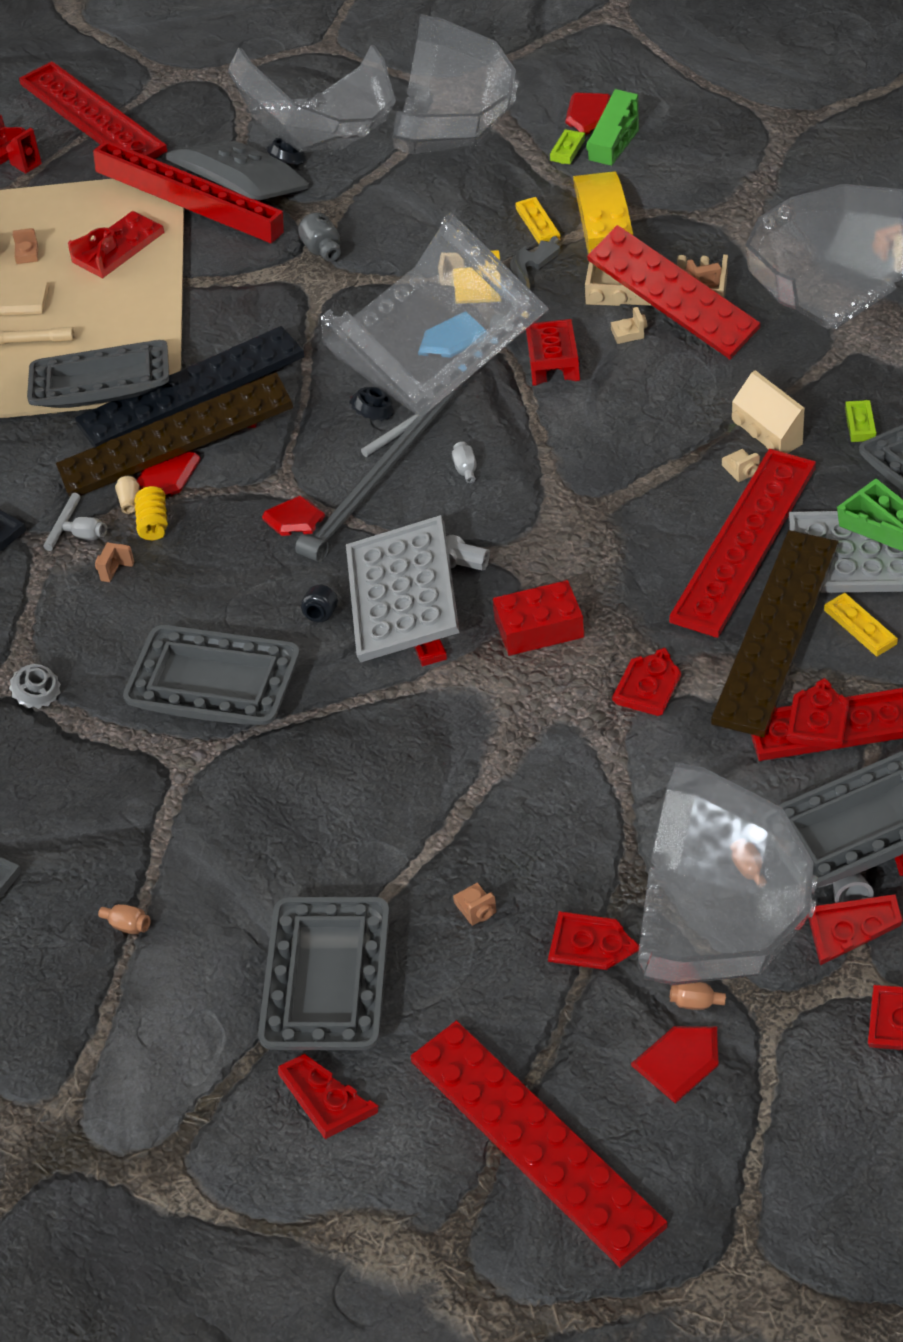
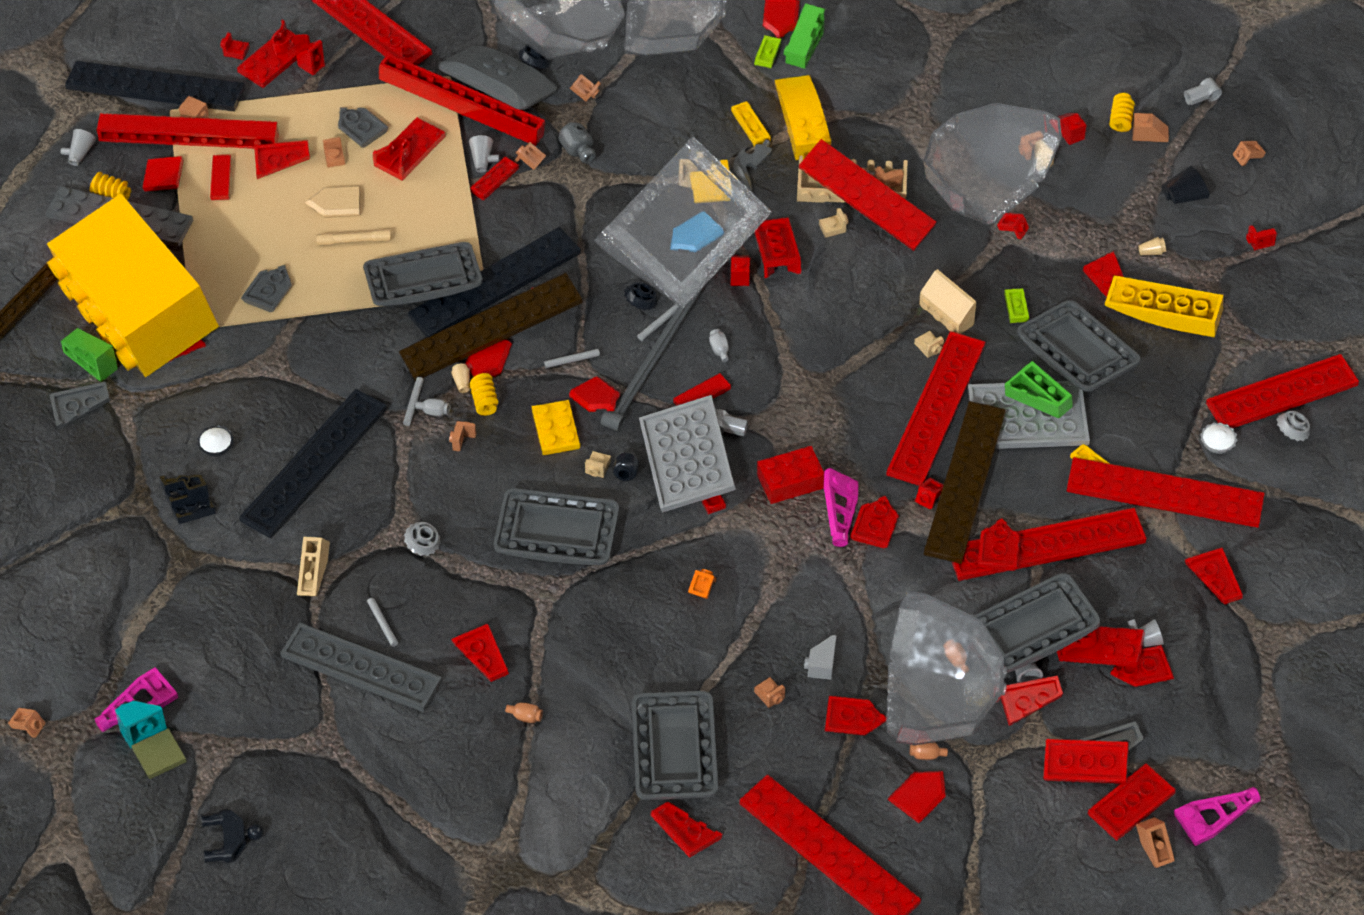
camera: 10 degrees left, 5 degrees up
(66, 220) = (361, 125): none -> dark grey tile
(84, 834) = (482, 651): none -> red wing
(203, 247) = (481, 150): none -> light grey piece
(214, 277) = (494, 178): none -> red tile
(237, 555) = (555, 427): none -> yellow plate
(262, 252) = (530, 155): none -> nougat bracket
(272, 475) = (571, 358): none -> light grey bar
(283, 600) = (597, 464): none -> tan bracket
(340, 183) = (585, 88): none -> nougat bracket
(399, 753) = (702, 583): none -> orange bracket
(450, 510) = (714, 386): none -> red tile
(502, 377) = (740, 270): none -> red slope
(553, 860) = (821, 659): none -> light grey slope
(615, 637) = (847, 487): none -> dark pink plate
(724, 645) = (928, 493): none -> red bracket
(860, 624) = (1024, 473): yellow tile -> none
(862, 326) = (1015, 223): none -> red bracket

